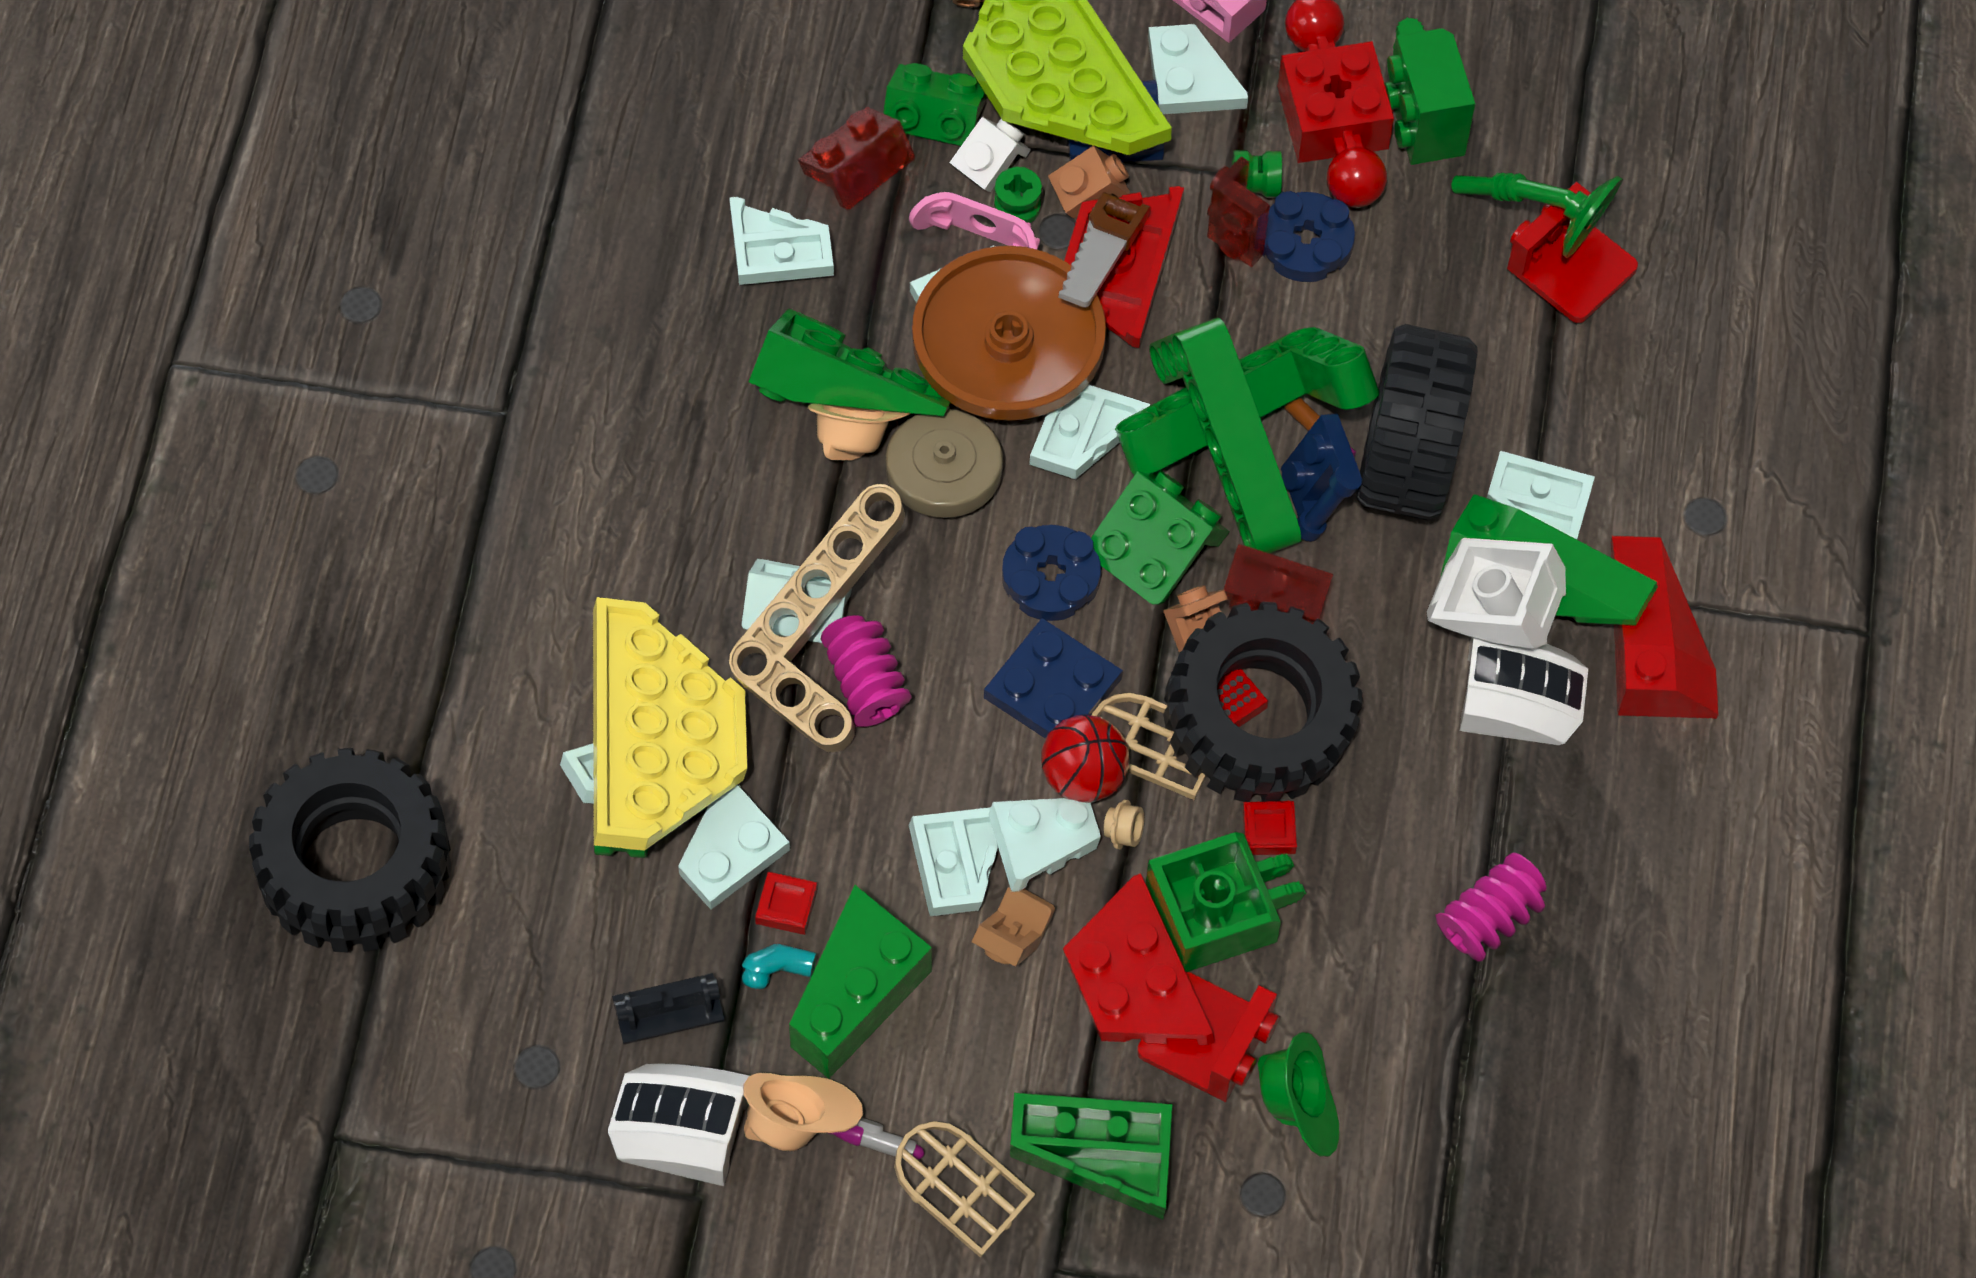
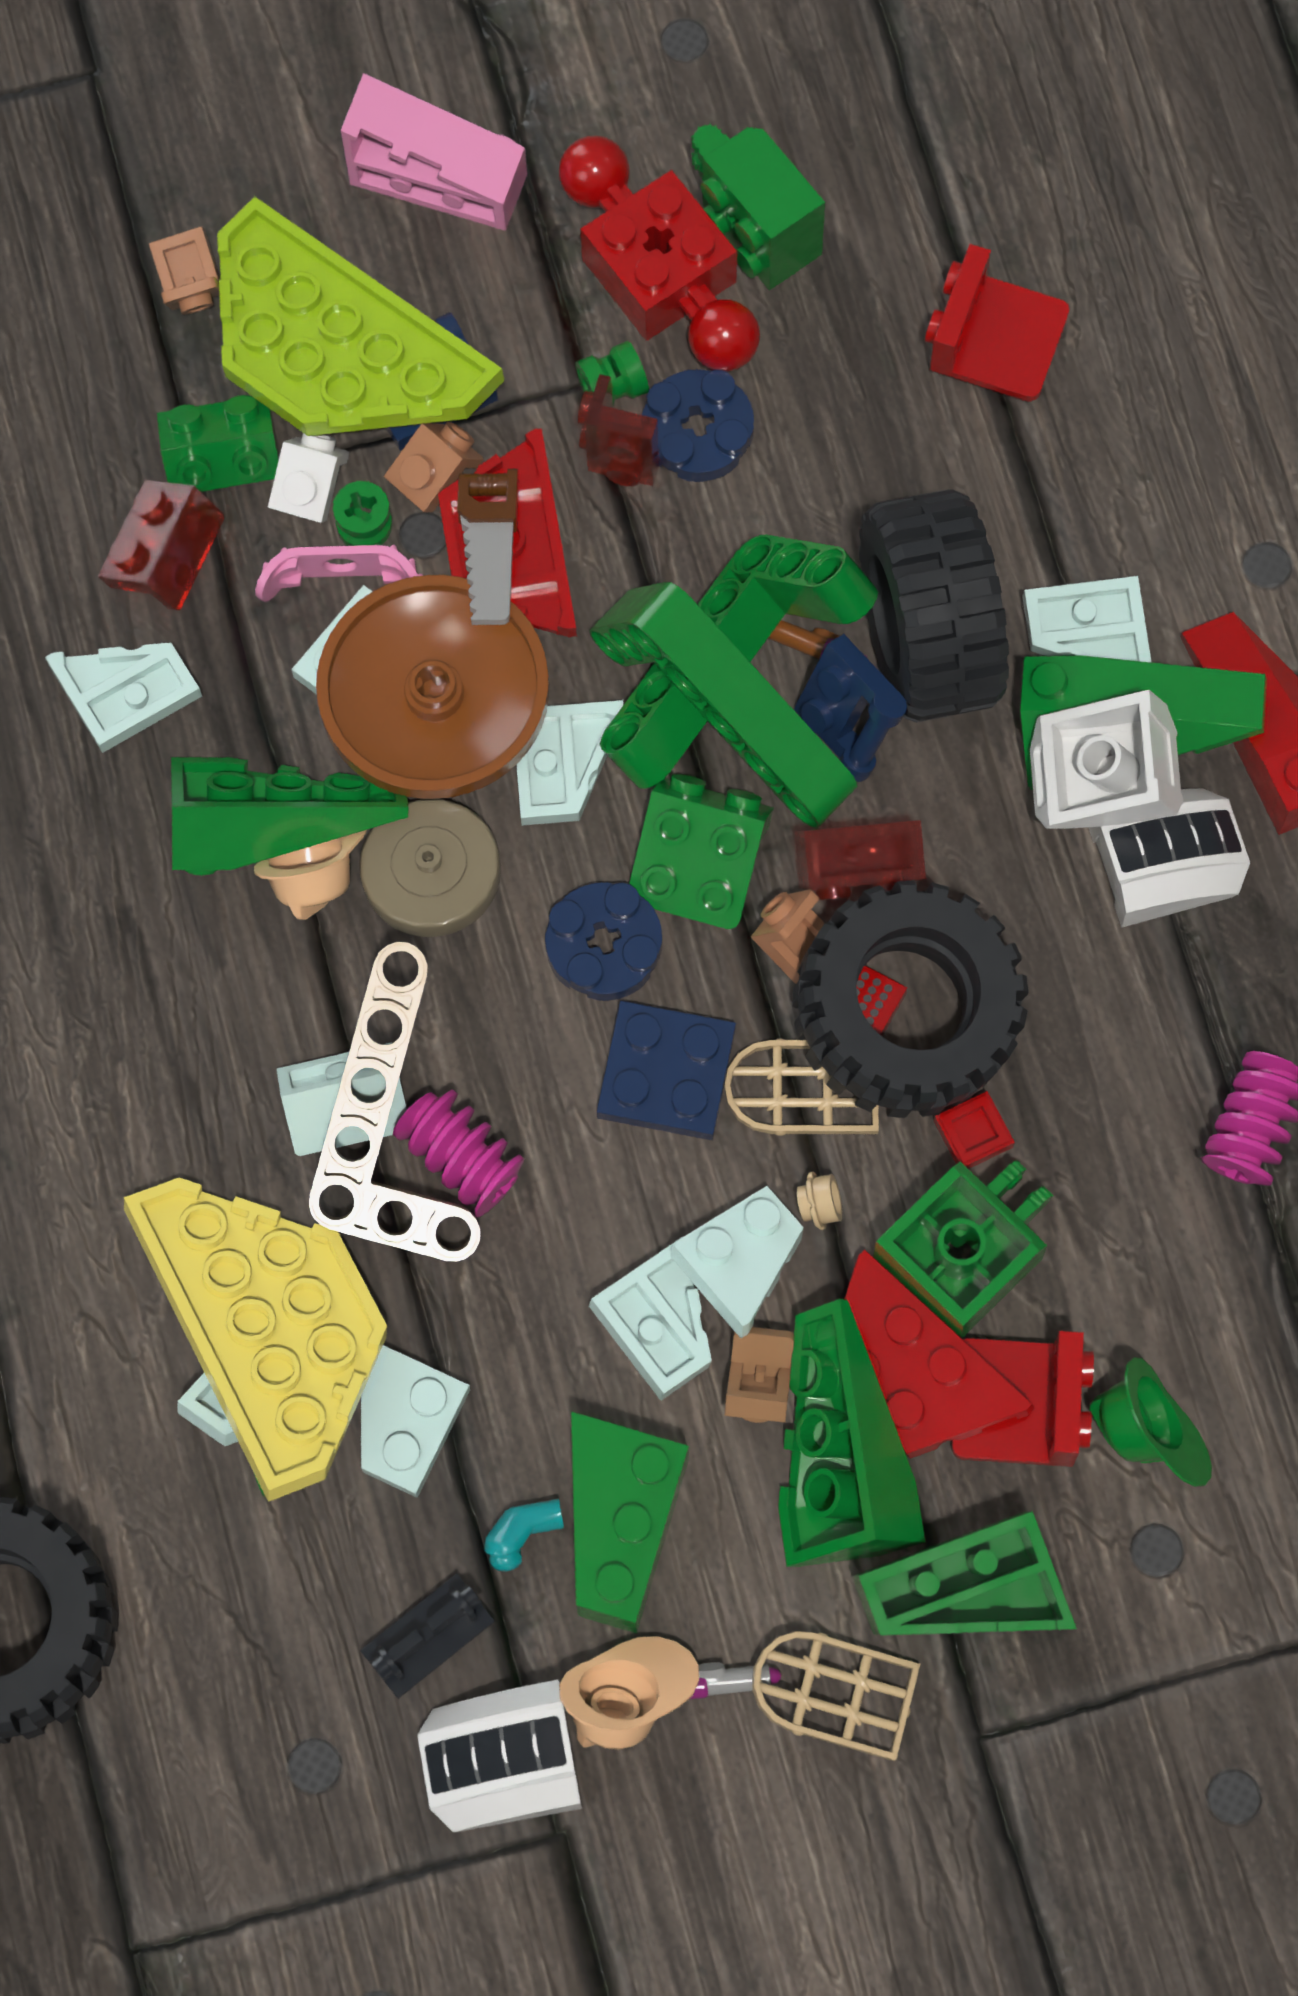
camera: 20 degrees left, 10 degrees up
(786, 903) = (497, 1454): red tile -> none
(1052, 1021) = (848, 1469): none -> green wedge
(1085, 758) = (748, 1148): red piece -> none
(1191, 72) = (482, 284): light aqua wing -> none
(1578, 207) = (991, 275): green dish -> none

